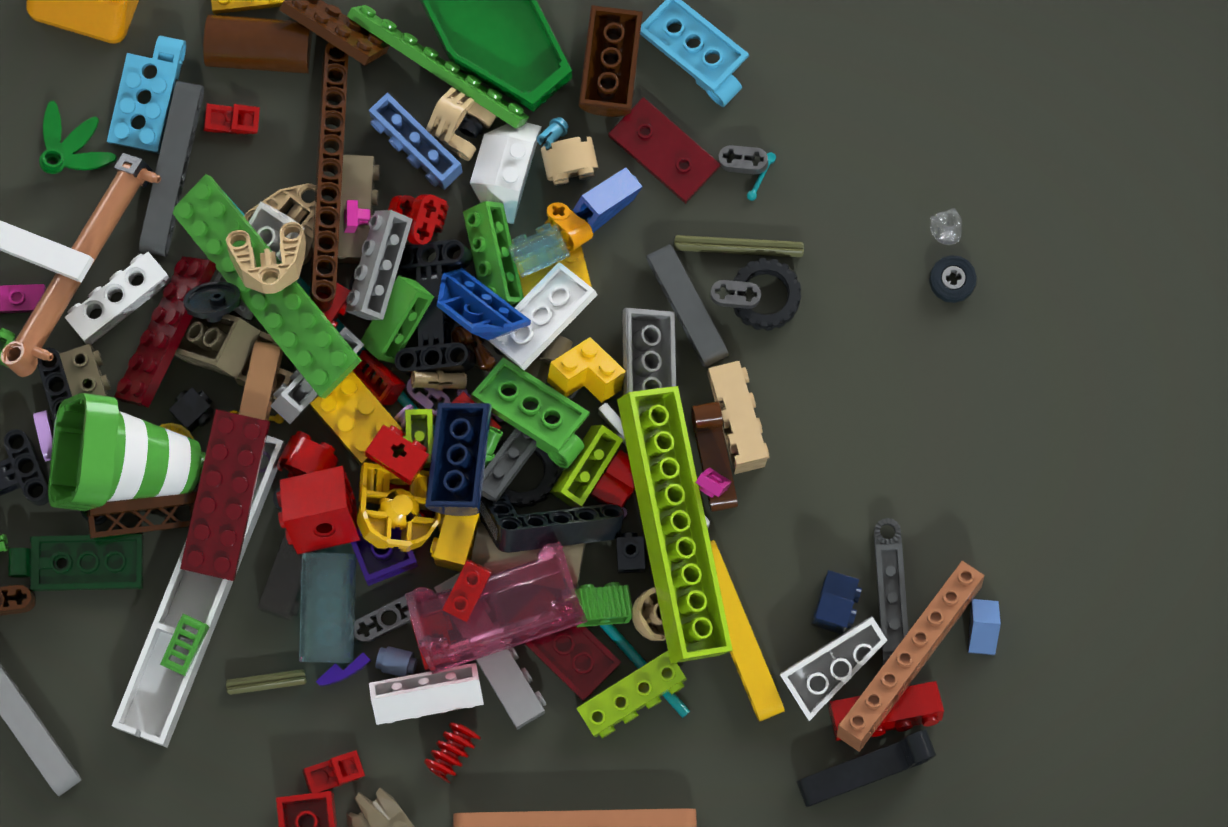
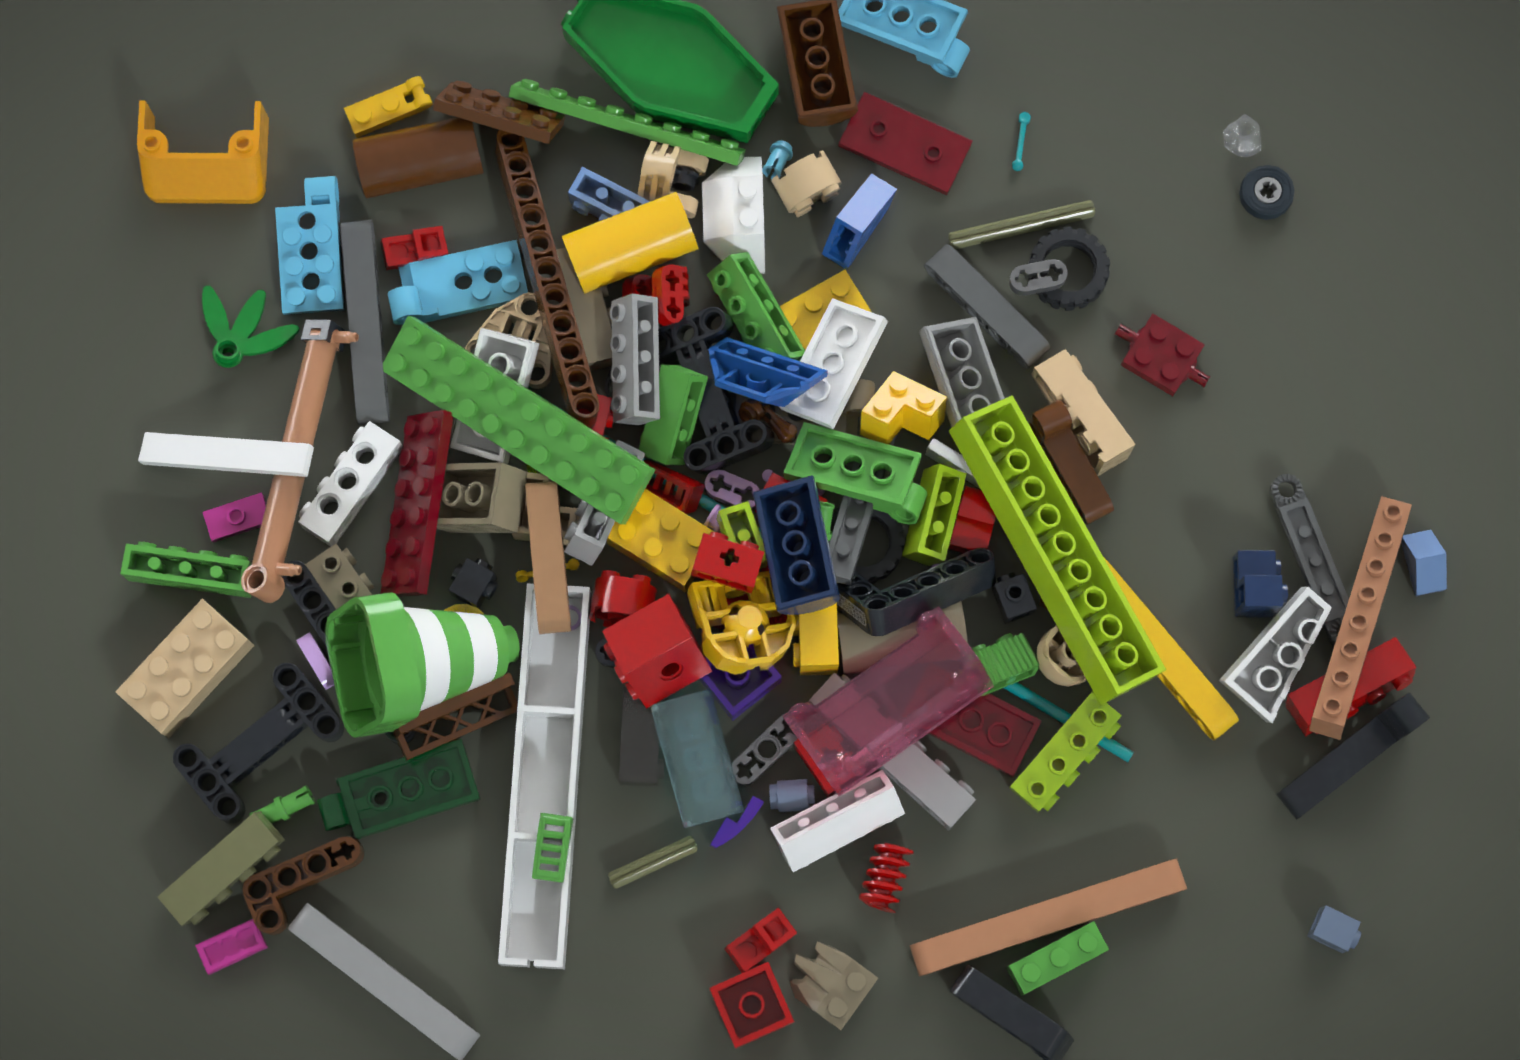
camera: 15 degrees left, 0 degrees up
(212, 300) = (462, 453): black piece -> none
(225, 495) = (546, 666): dark red plate -> none
(235, 156) = (430, 287): none -> medium azure hinge
(270, 276) = (522, 405): tan connector -> none
(354, 216) = (590, 313): dark pink tile -> none
(405, 166) = (630, 242): none -> yellow brick
(438, 380) = (739, 468): tan pin -> none
(467, 590) = (852, 691): red brick -> none
(539, 249) = (806, 291): clear light blue brick -> none
(573, 228) = (829, 260): light orange piece -> none
(713, 483) = (1084, 491): dark pink plate -> none
(742, 159) = (996, 128): flat silver beam -> none
(821, 389) = (1162, 355): none -> dark red plate

